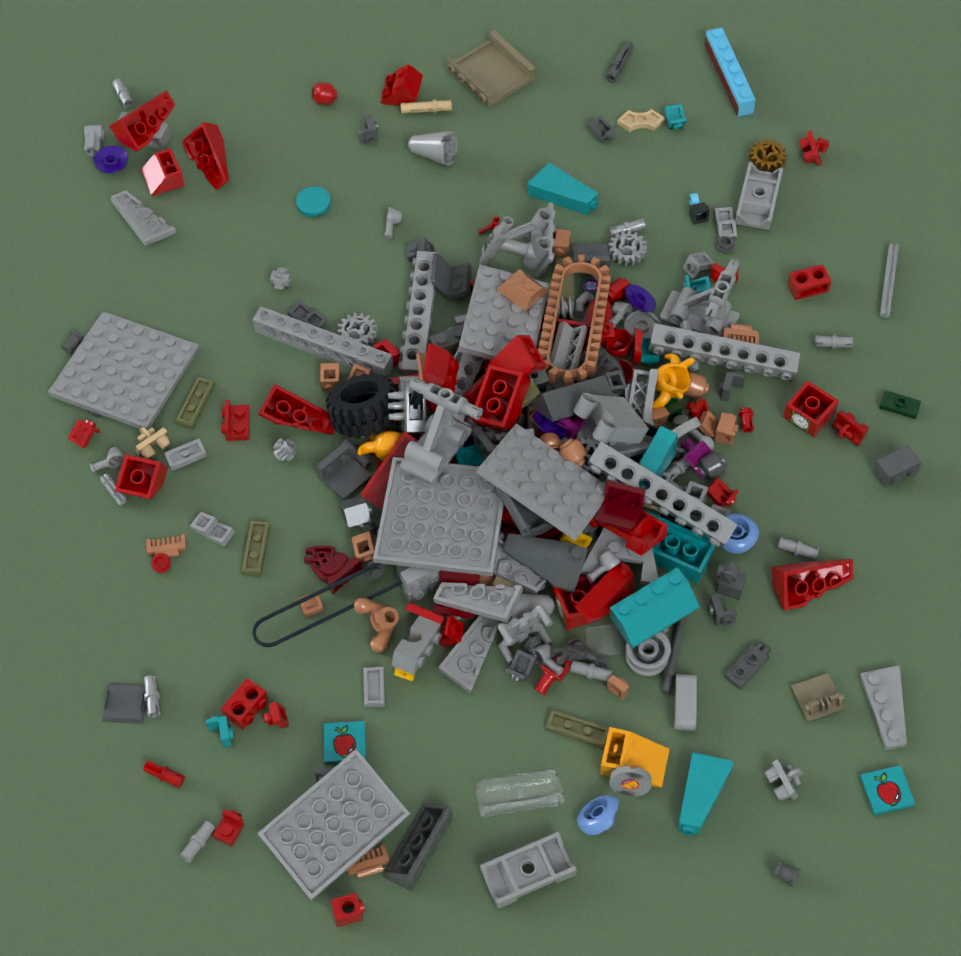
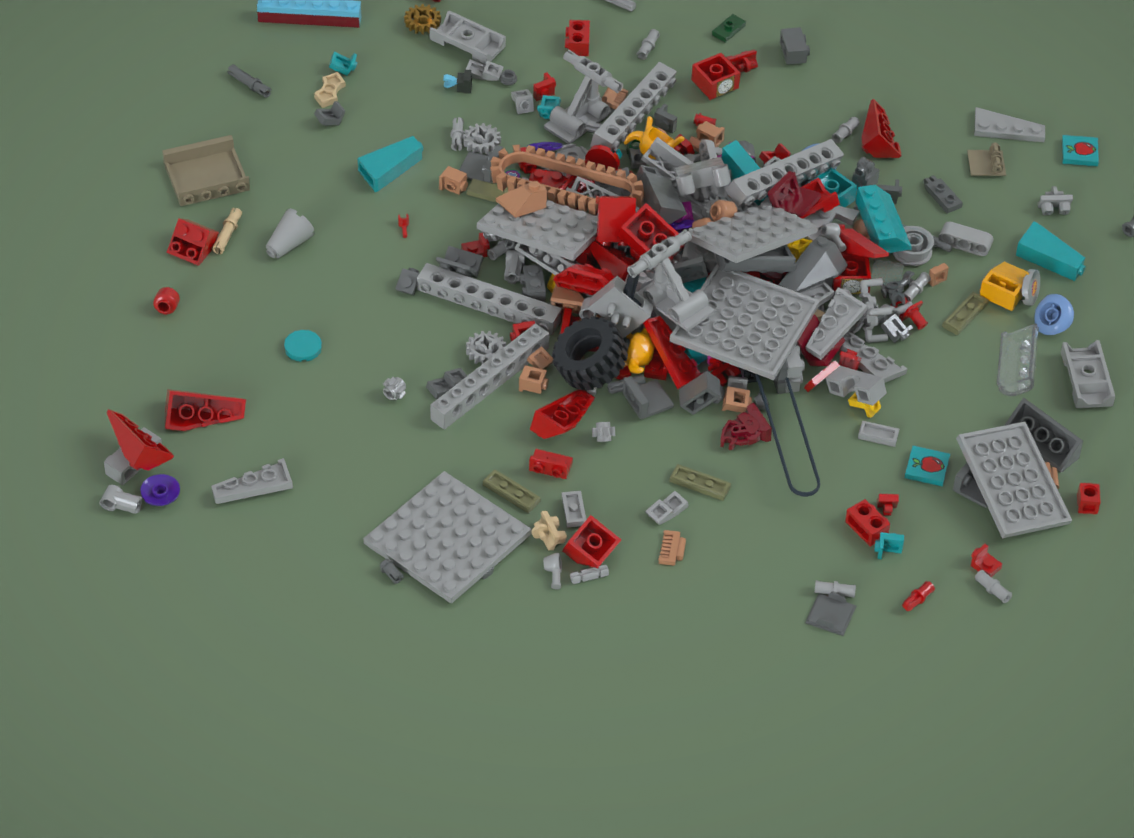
camera: 75 degrees left, 10 degrees down
(83, 432) = (513, 582): red bracket -> none
(122, 93) = (66, 463): light grey pin -> none
(161, 563) = (691, 553): red plate -> none
(162, 173) = (206, 448): red slope -> none
(311, 606) = (774, 454): nougat plate -> none
(369, 134) = (235, 277): dark grey bracket -> none
(383, 621) = (821, 404): nougat head -> none
(393, 217) = (356, 292): light grey bar -> none
(536, 253) = (451, 192): light grey plate -> none

